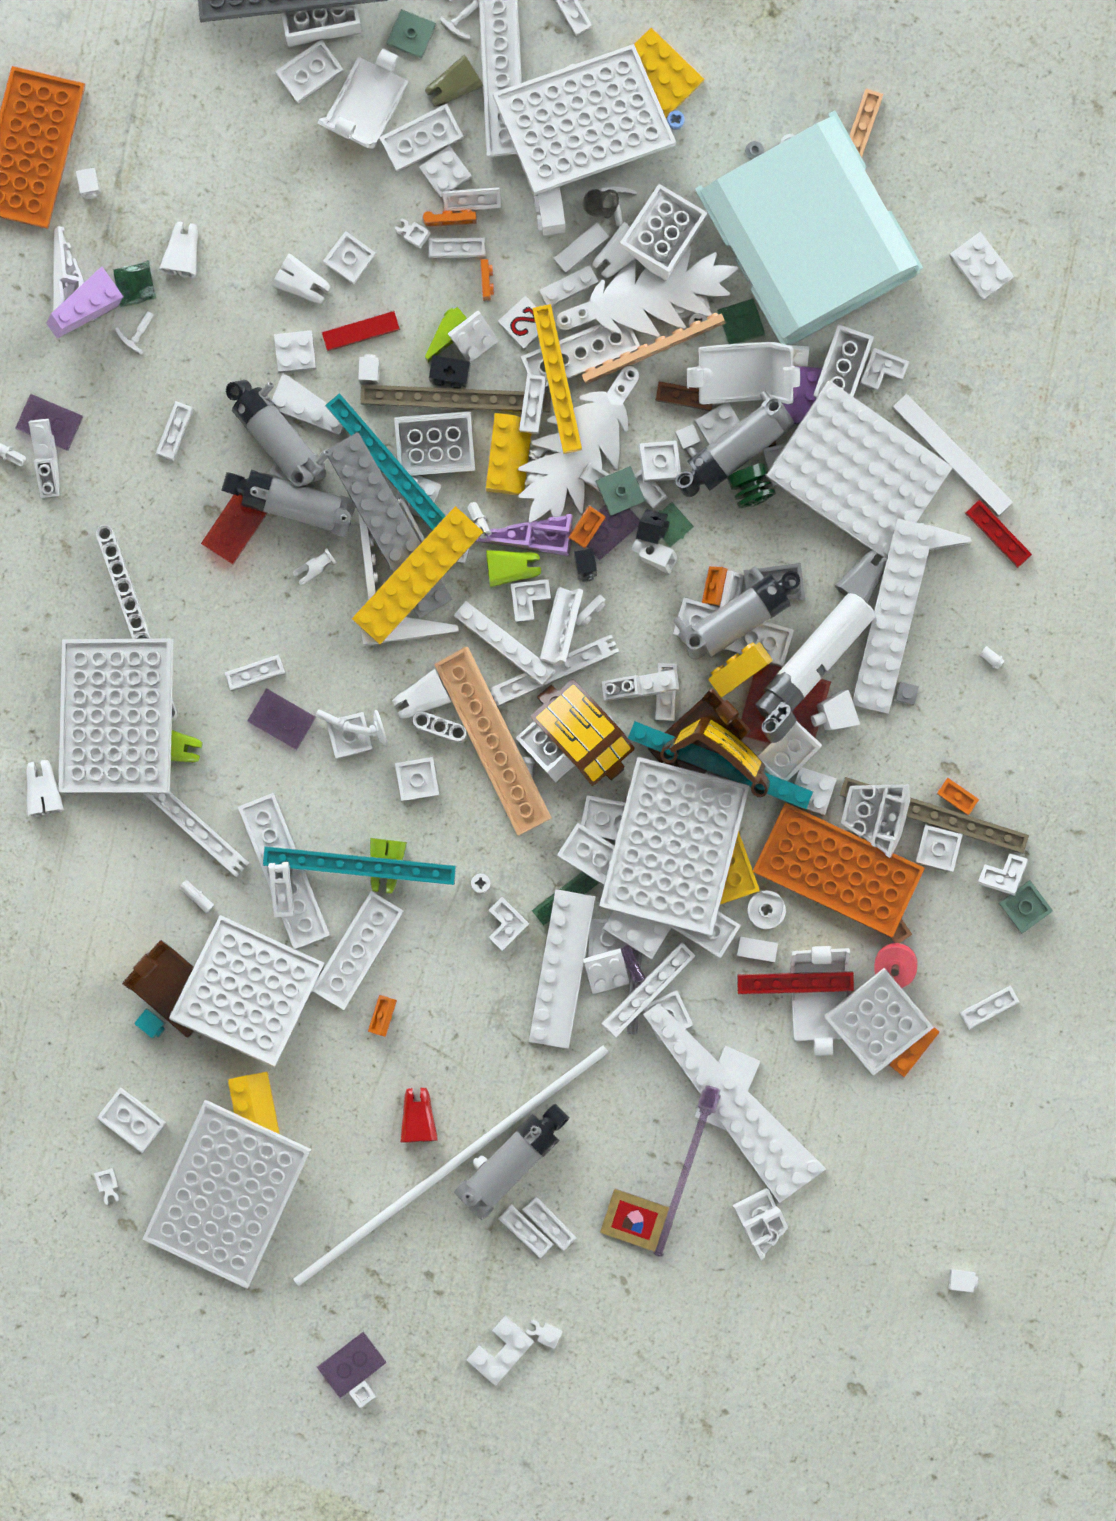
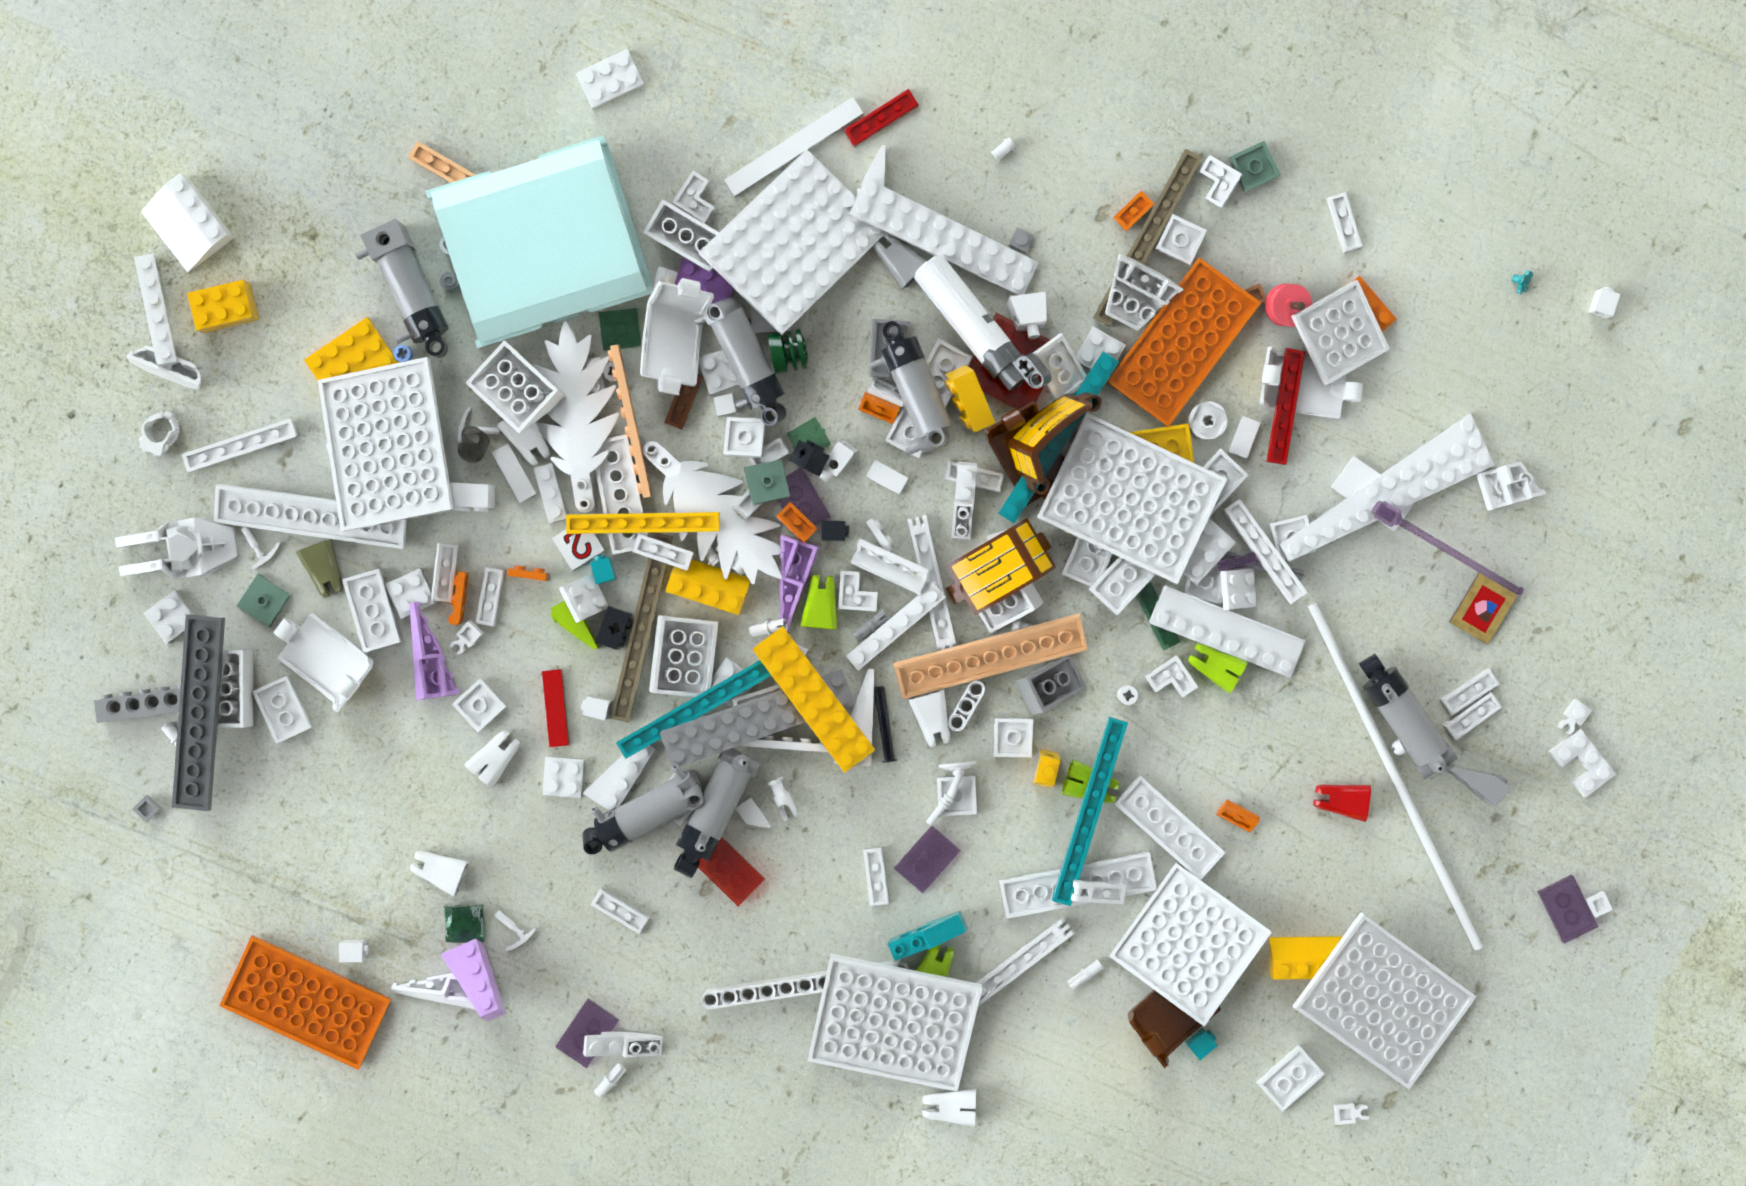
camera: 85 degrees left, 5 degrees up
(207, 732) = (927, 936): none -> teal brick
(293, 540) = (752, 814): none -> white tile
(373, 204) = (430, 670): none -> lavender wedge
(392, 817) = (1046, 768): none -> yellow torso
(405, 651) = (884, 724): none -> black axle
(460, 1251) = (1486, 786): none -> light grey slope
(476, 806) = (1050, 684): none -> light grey slope
(499, 618) = (870, 626): none -> light grey pin
(504, 350) = (603, 569): none -> teal brick
(525, 968) = (1219, 666): none -> lime piece
(648, 607) = (887, 477): none -> white tile
(742, 111) = (407, 284): none -> light grey piece
(967, 1195) = (1522, 281): none -> teal plant

